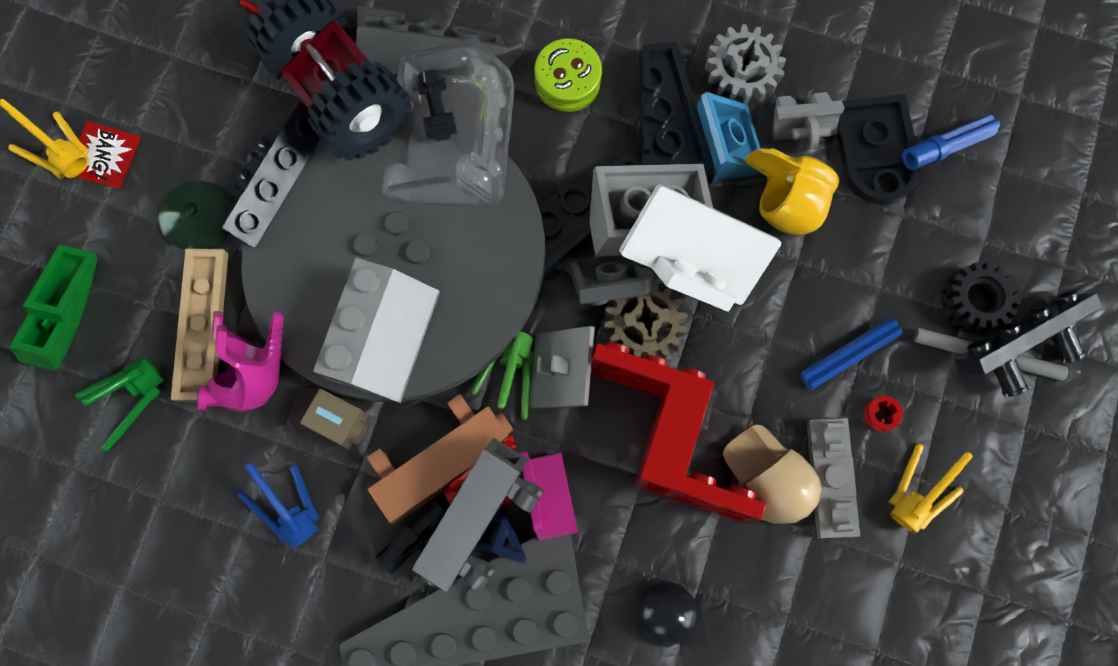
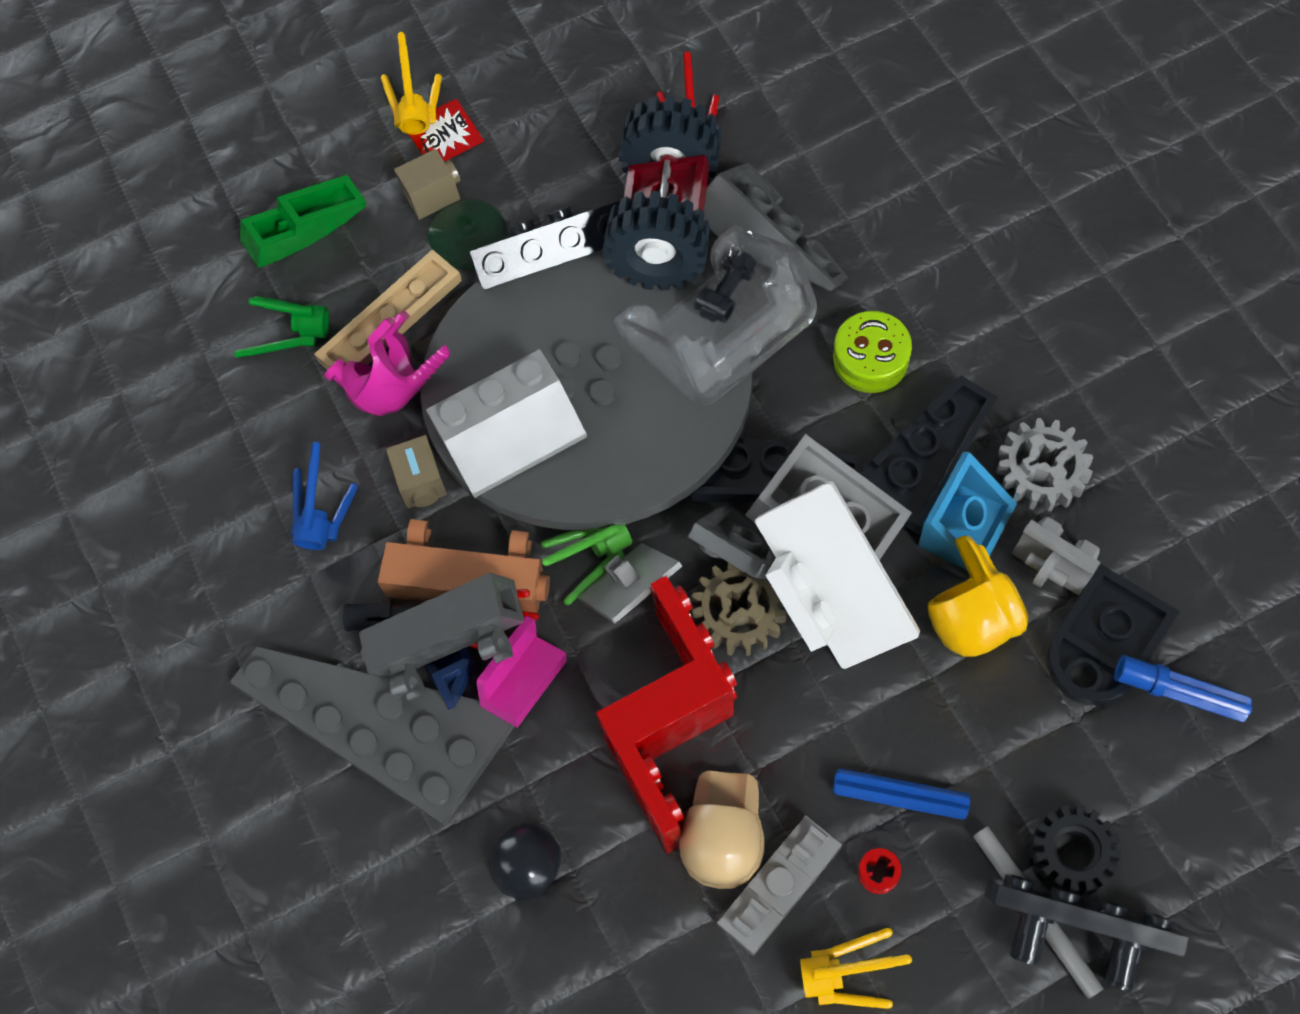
camera: 55 degrees right, 10 degrees down
(132, 201) = (428, 183): none -> dark tan brick

